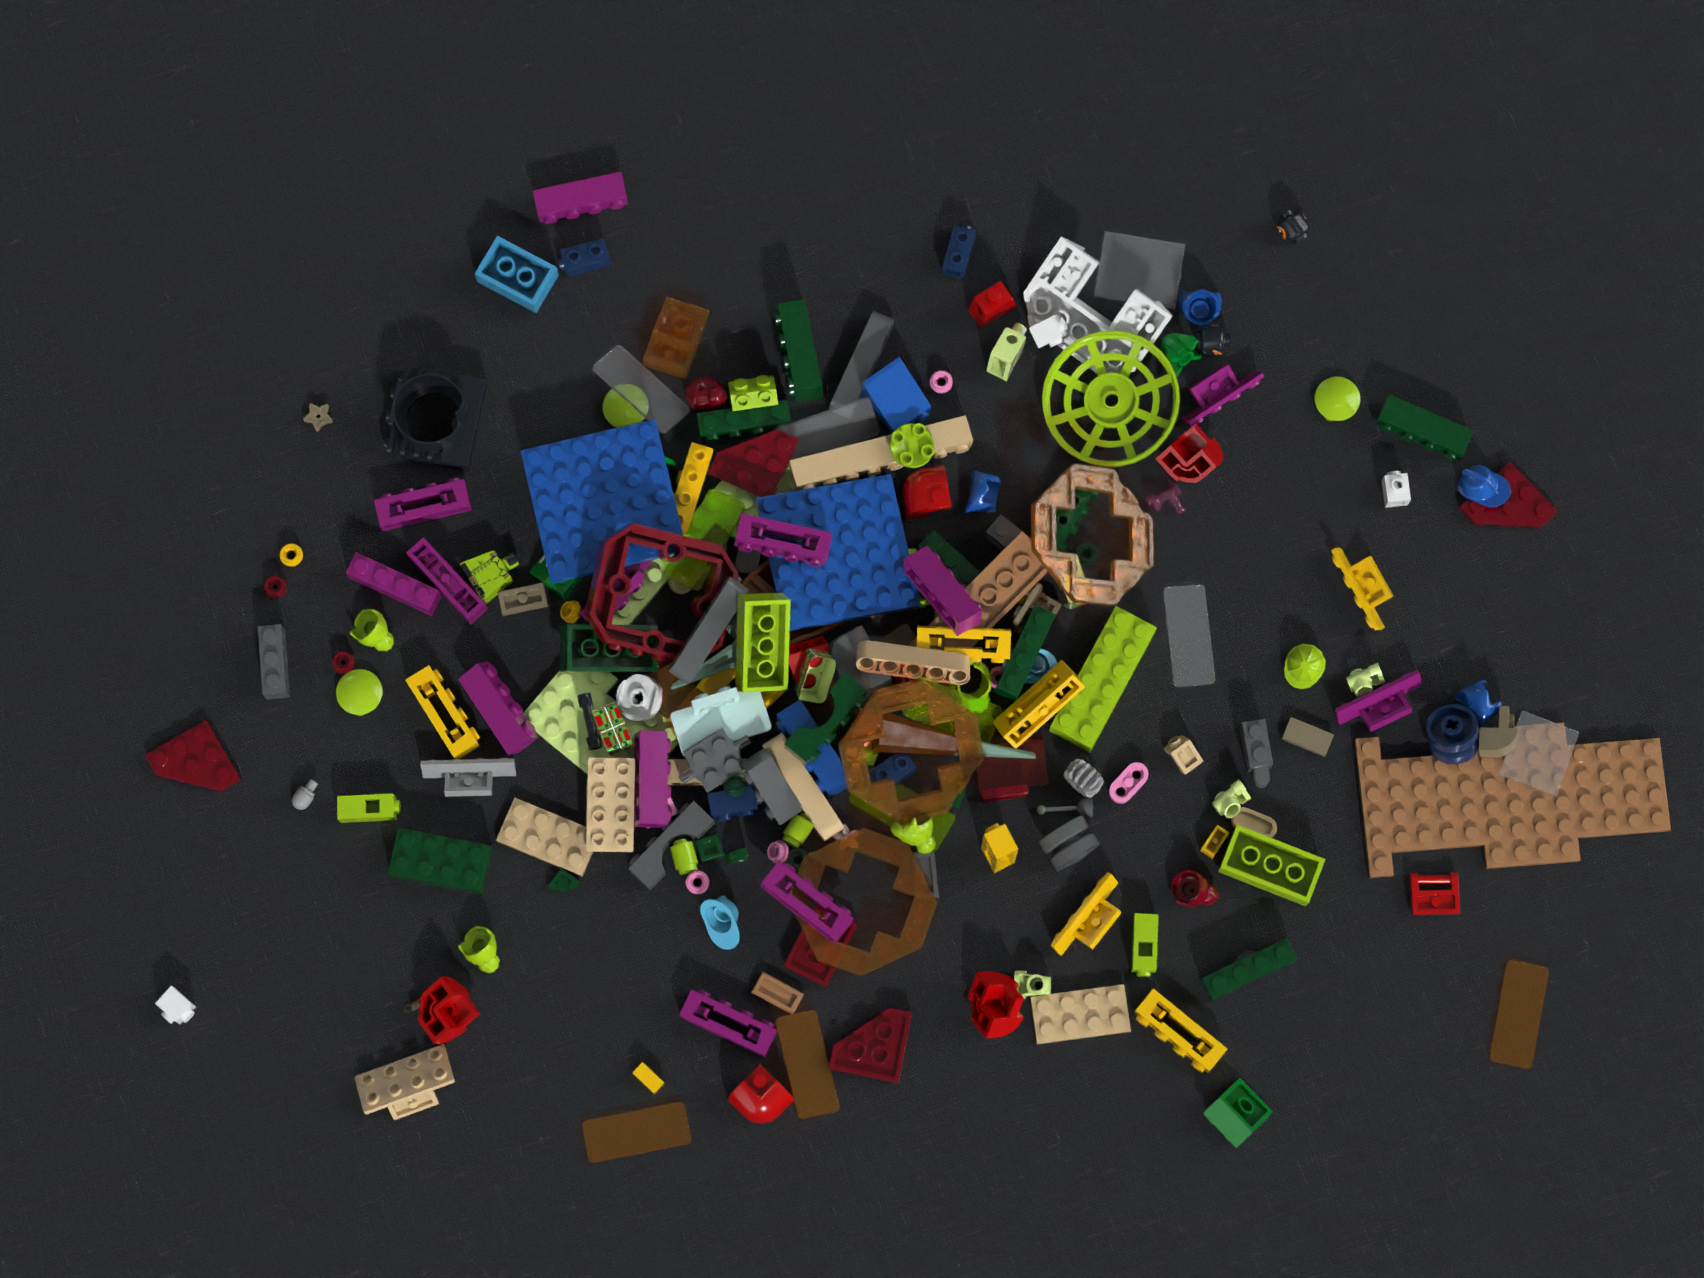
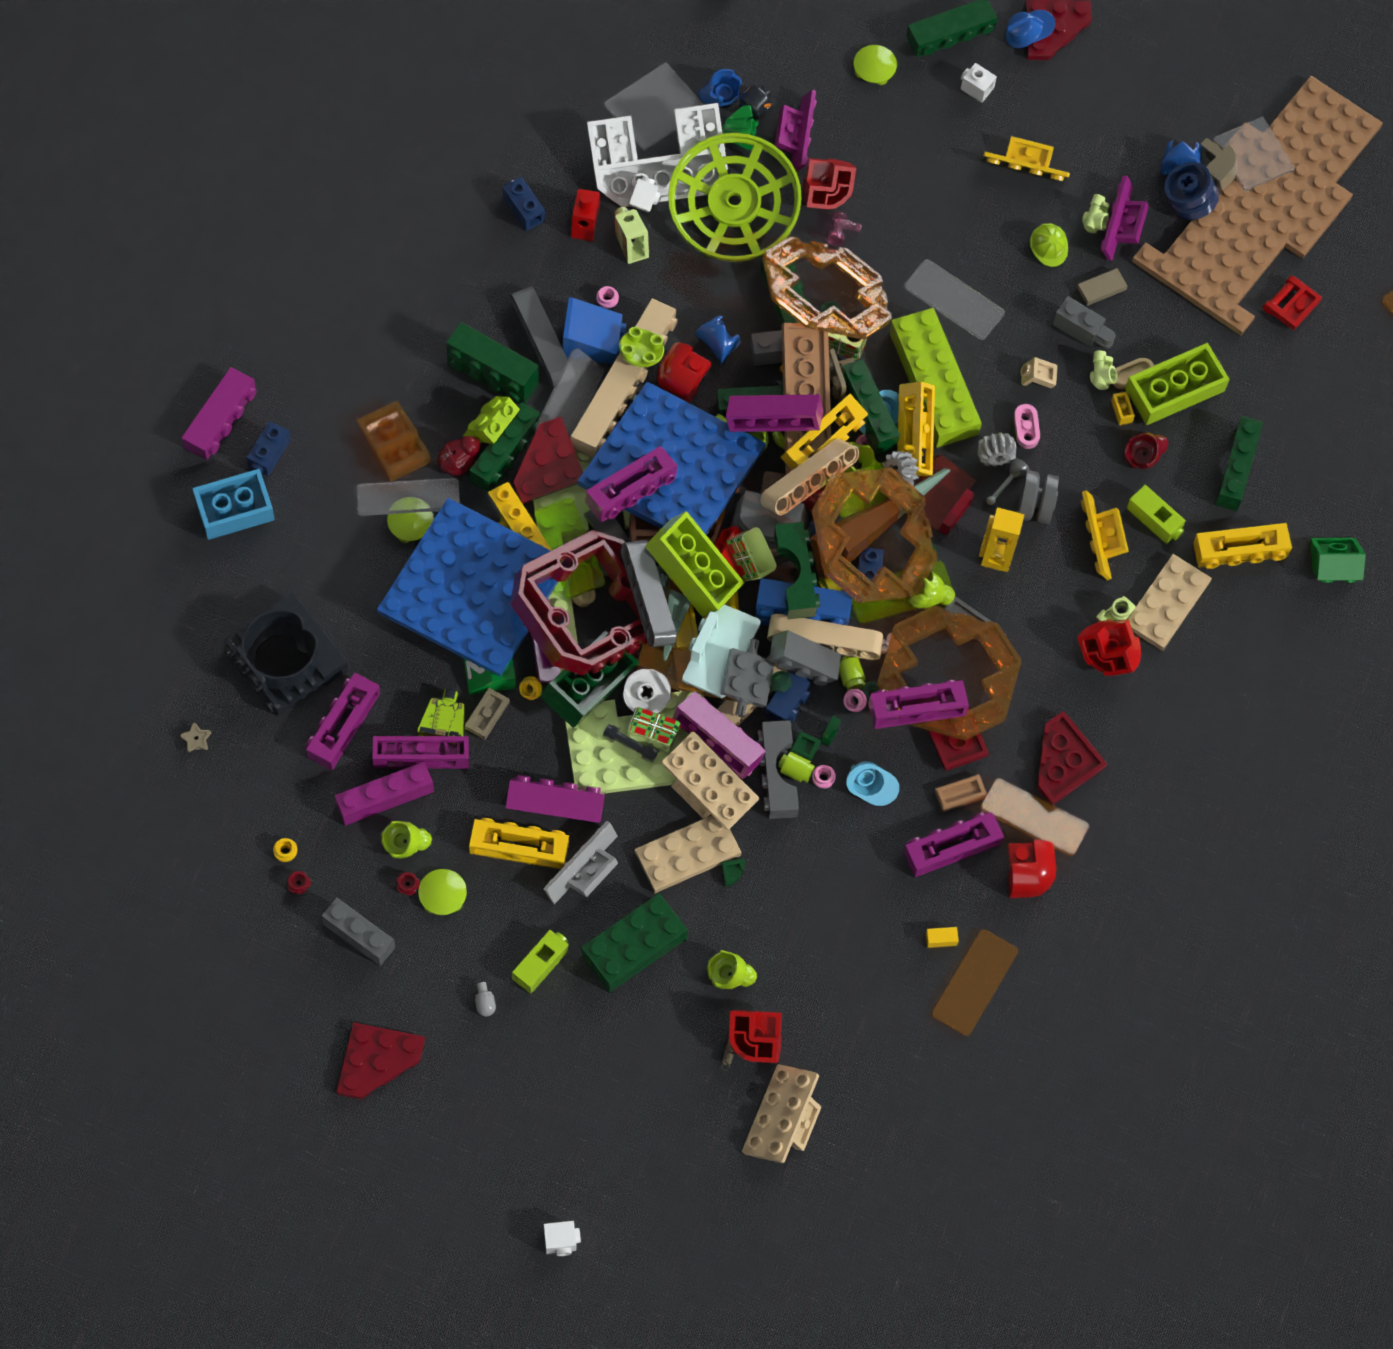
camera: 55 degrees left, 10 degrees down
(992, 721) = (903, 464): none -> light grey gear

